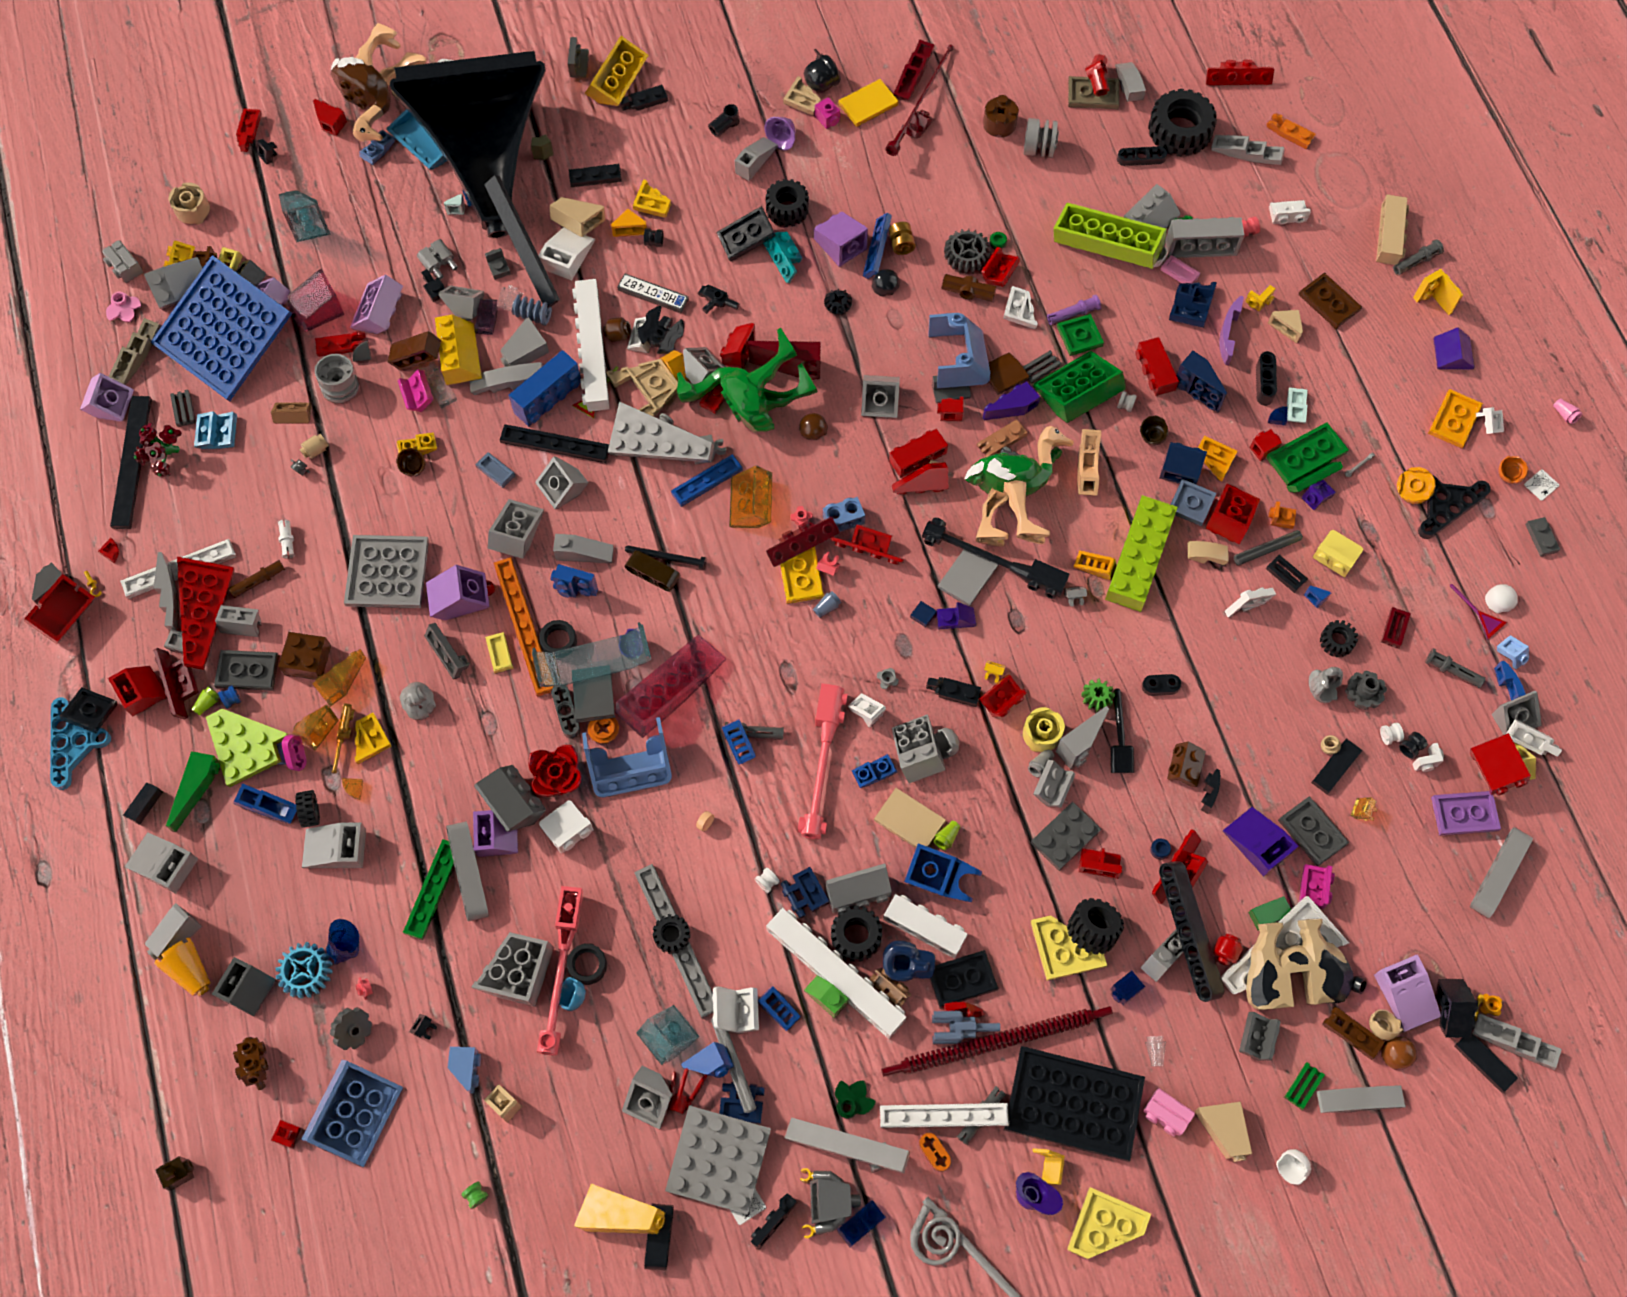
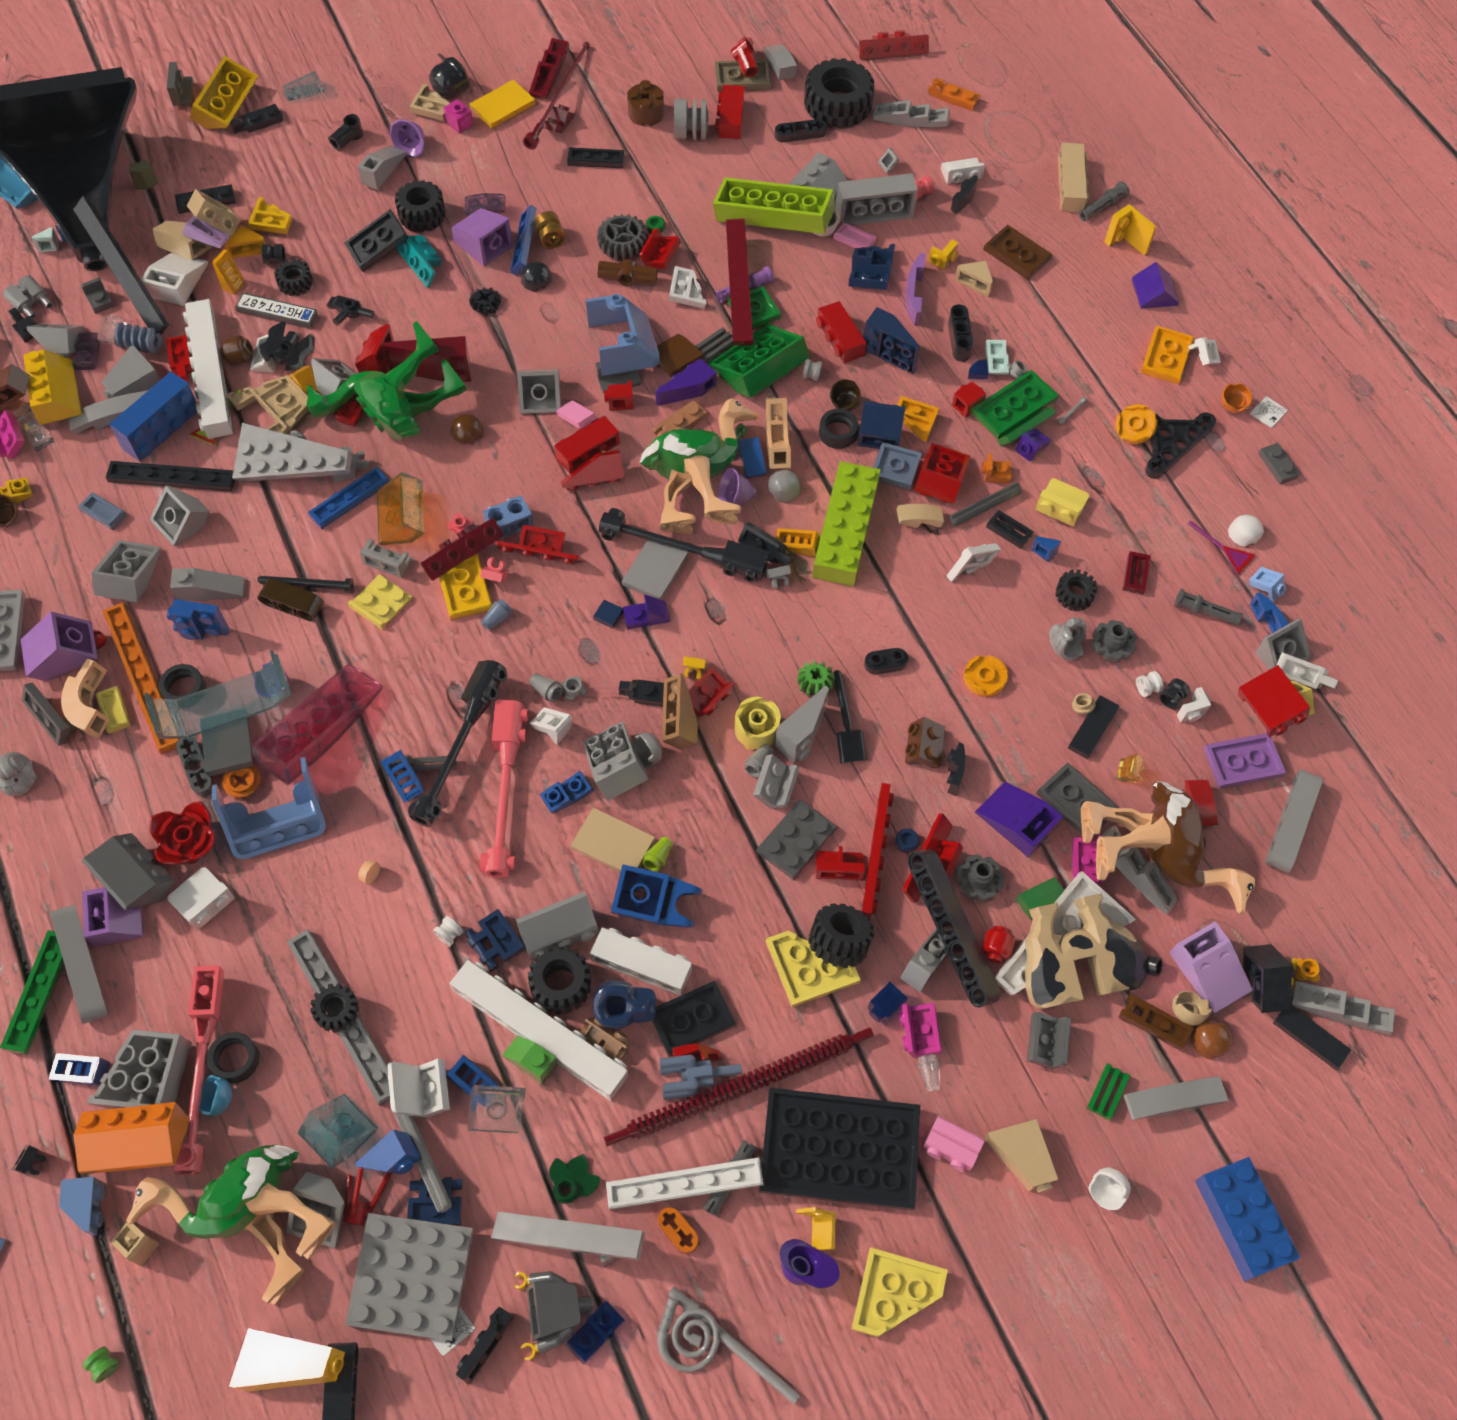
camera: 10 degrees left, 5 degrees down
(472, 643) = (78, 698): none -> light nougat arch
(476, 961) = (95, 1069): none -> slope
(505, 1020) = (129, 1138): none -> orange slope
(567, 331) = (179, 356): none -> red hinge
(592, 212) = (205, 233): none -> lavender slope
(594, 1083) = (241, 1201): none -> animal
(603, 193) = (213, 211): none -> tan window
(613, 254) = (228, 274): none -> light orange slope
(666, 254) = (296, 285): none -> black tyre
(687, 64) = (309, 84): none -> clear light blue slope
(728, 580) = (380, 601): none -> light yellow piece
(735, 542) = (385, 559): none -> light grey hinge
(796, 1034) = (495, 1108): none -> clear slope
(807, 676) = (478, 695): none -> black bar
(848, 204) = (489, 201): none -> clear purple slope
(866, 676) = (547, 687): none -> light grey cone
(911, 423) = (576, 414): none -> bright pink tile
(949, 166) = (595, 157): none -> black tile
(976, 714) = (679, 718): none -> medium nougat slope
(1045, 510) = (735, 488): none -> medium lavender hat
(1060, 559) = (757, 538): none -> black hinge
(1063, 480) = (752, 457): none -> blue slope
(1069, 308) = (739, 282): none -> dark red tile
(1078, 131) = (730, 111): none -> red brick
(1089, 510) = (784, 485): none -> light grey hair
(1136, 848) = (879, 841): none -> red plate
(1145, 448) = (838, 441): none -> black tyre
(1153, 1014) = (921, 1030): none -> dark pink bracket
(1219, 890) = (979, 878): none -> dark grey plant
(1221, 195) = (888, 160): none -> light grey slope
(1247, 708) = (985, 675): none -> light orange tile
(1289, 237) = (965, 195): none -> black slope
(1314, 419) = (1017, 369): none -> light grey plate
(1359, 904) = (1144, 875): none -> light grey slope
(1389, 875) = (1171, 839): none -> animal
(1405, 1206) = (1247, 1219): none -> blue brick
(1422, 846) = (1202, 795): none -> red slope
(1568, 411) = (1285, 336): bright pink cone -> none

